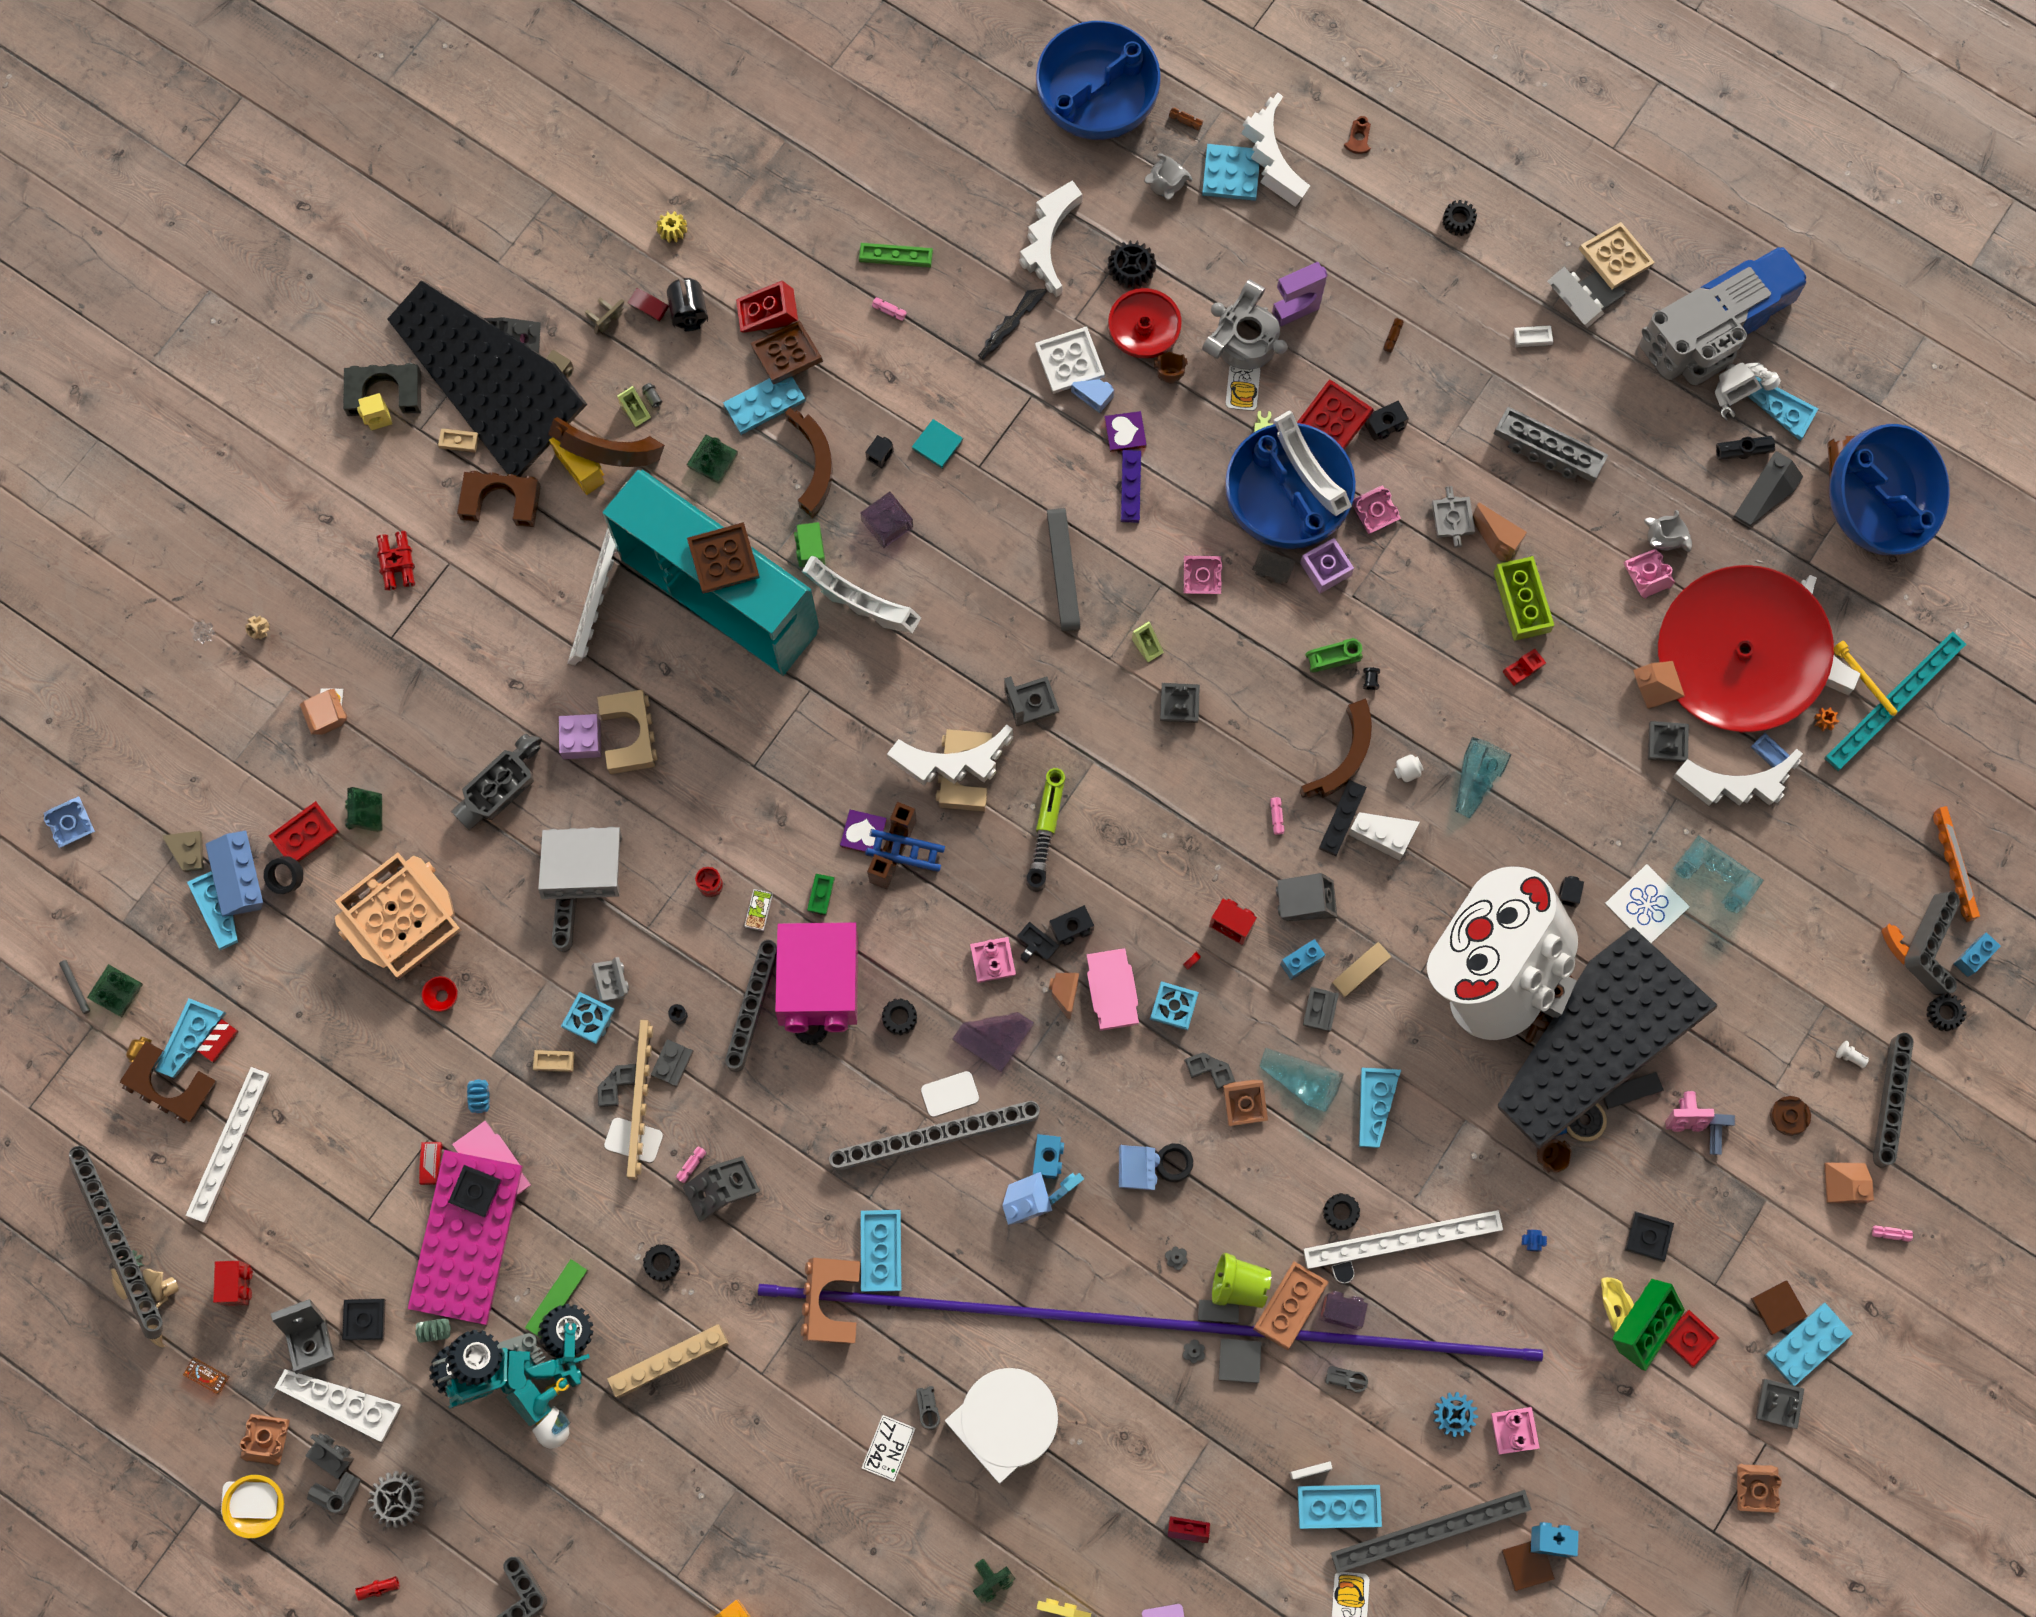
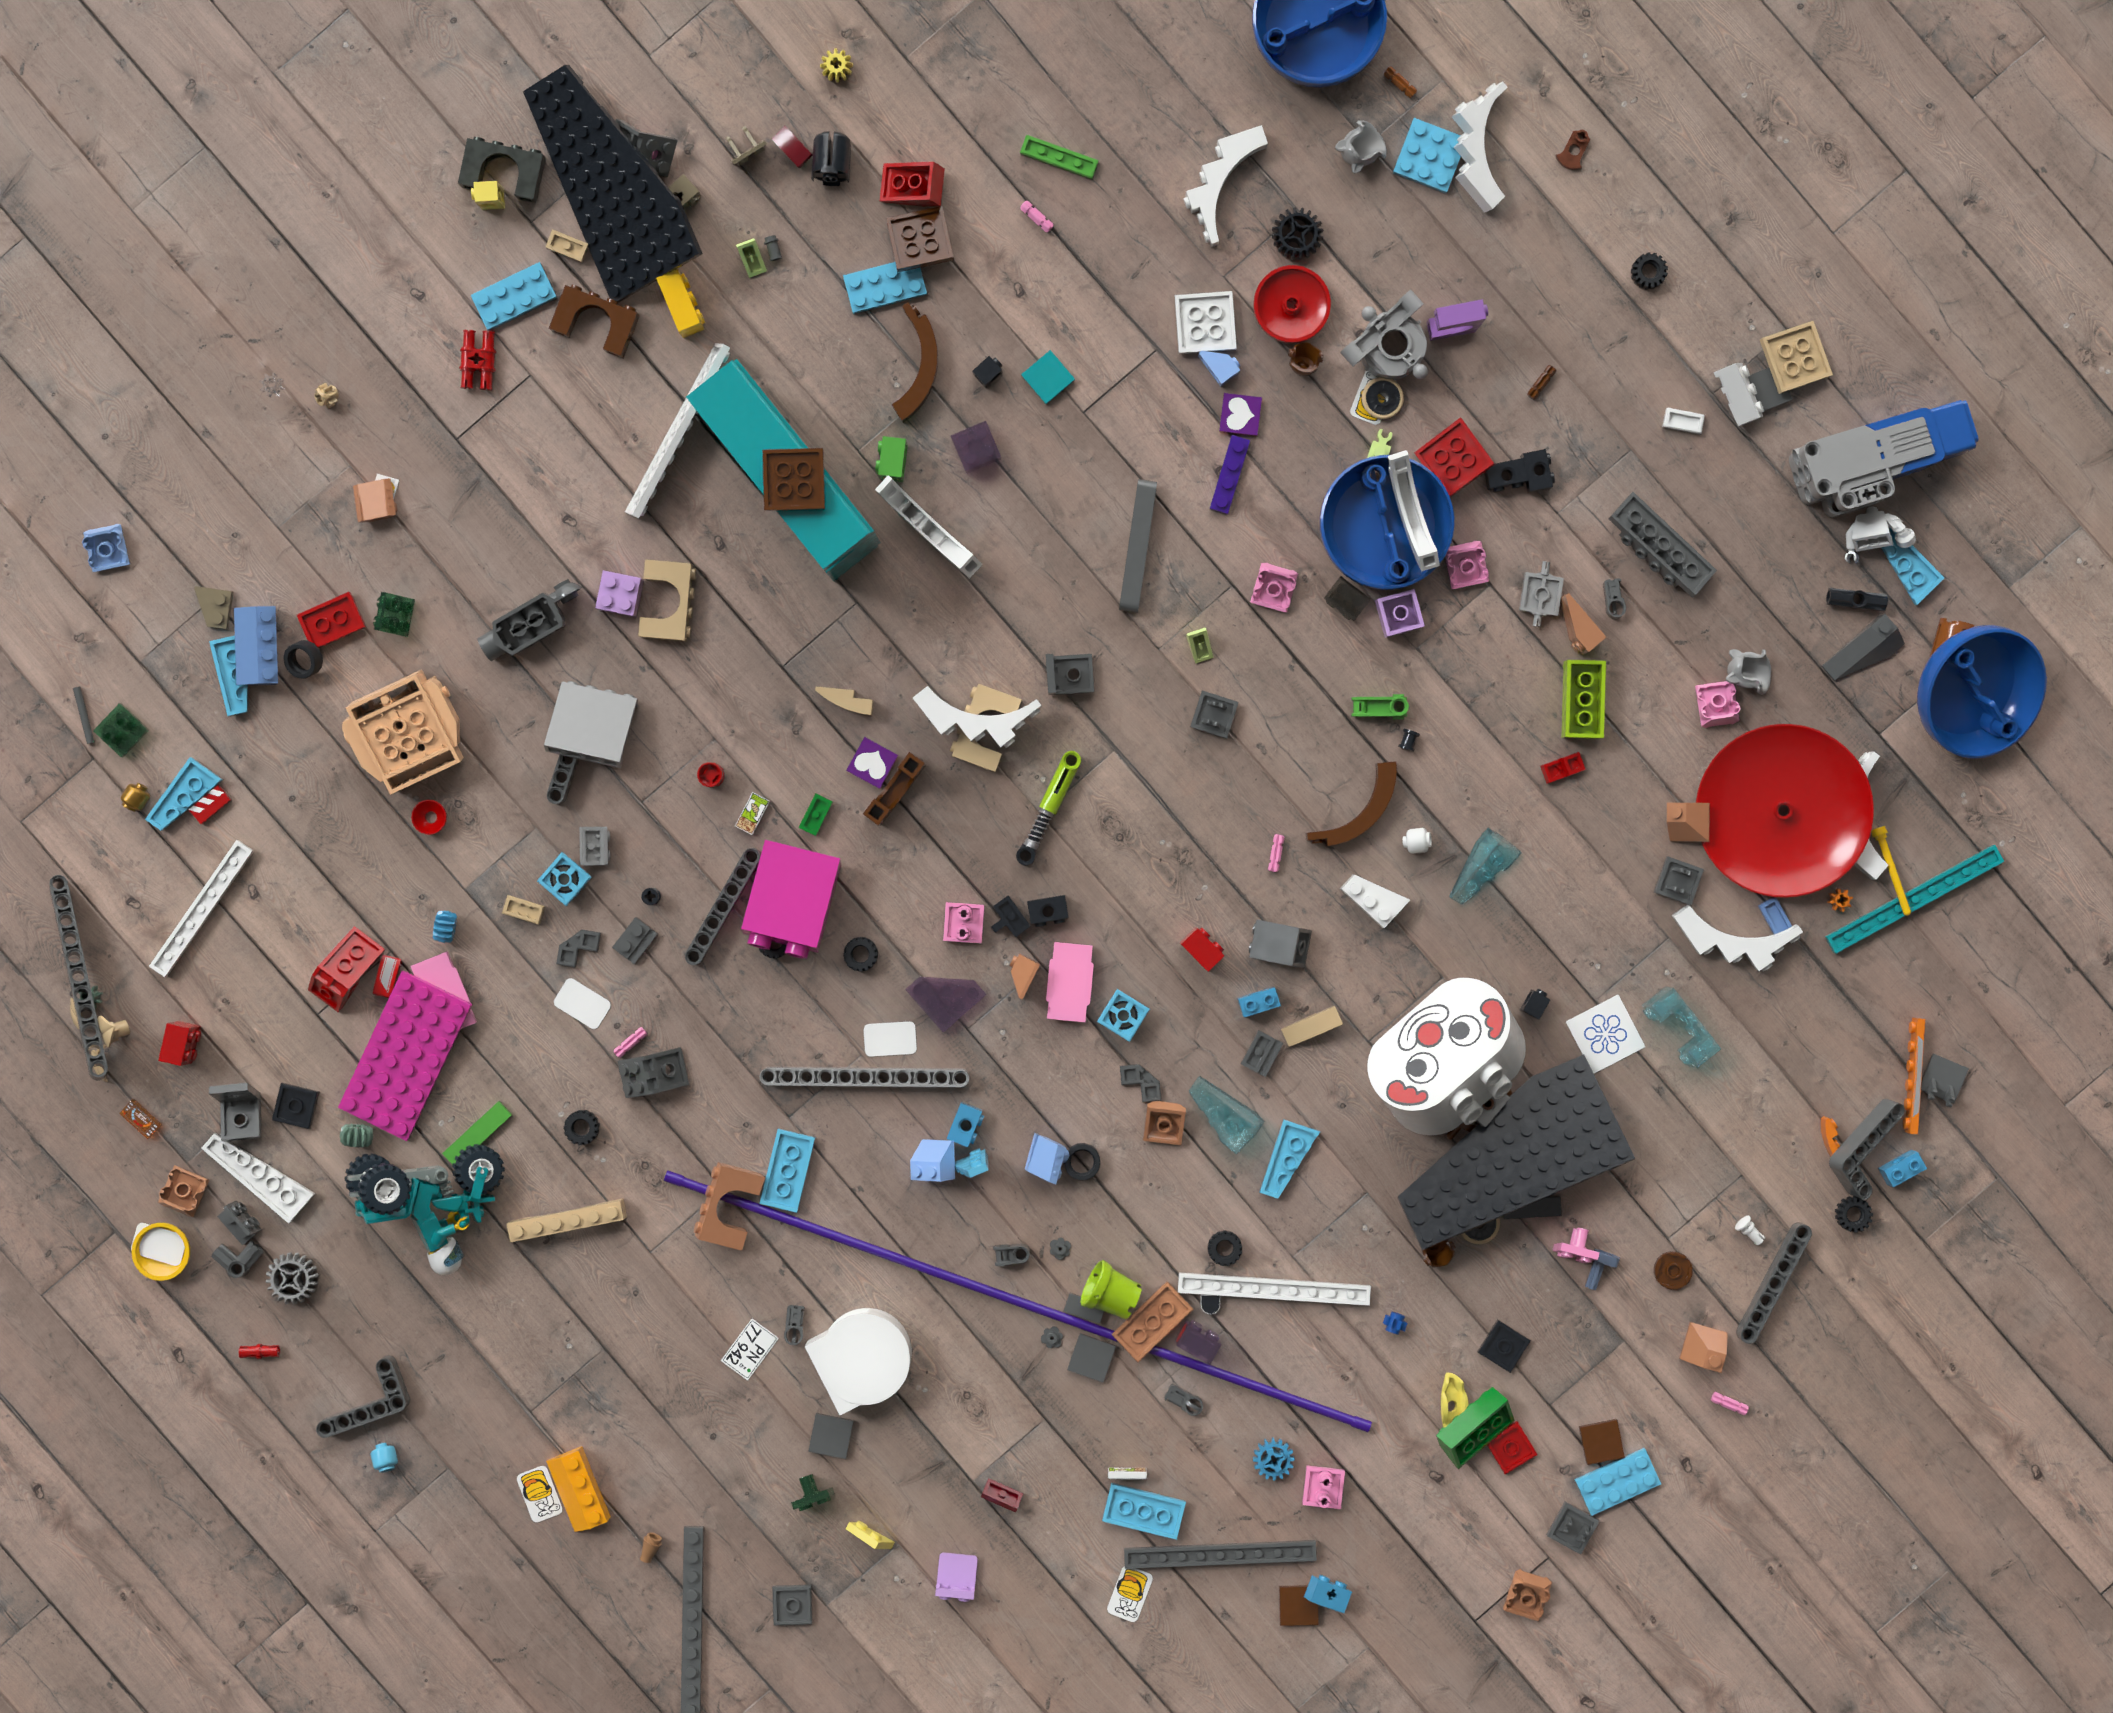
camera: 20 degrees right, 15 degrees up
(138, 1079) = (164, 861): reddish brown arch -> none
(382, 1166) = (343, 967): none -> bracket
(417, 497) = (513, 296): none -> medium azure plate
(475, 1191) = (421, 1018): black tile -> none
(605, 451) = (711, 307): reddish brown arch -> none
(639, 1108) = (599, 960): tan plate -> none
(712, 458) = (818, 334): clear green plate -> none
(822, 779) = (846, 699): none -> tan slope
(897, 841) = (895, 797): blue bar -> none
(995, 1516) = (830, 1435): none -> dark grey tile
(1027, 303) = (1158, 263): black sword -> none
(1127, 1275) = (1009, 1254): none -> dark grey piece
(1192, 960) = (1153, 974): red tile -> none
(1248, 394) = (1391, 389): none -> black wheel
(1342, 818) = (1339, 871): black plate -> none
(1417, 420) = (1536, 482): none -> black brick
(1520, 502) = (1613, 595): none -> dark grey piece
(1984, 860) = (1943, 1079): none -> dark grey plate

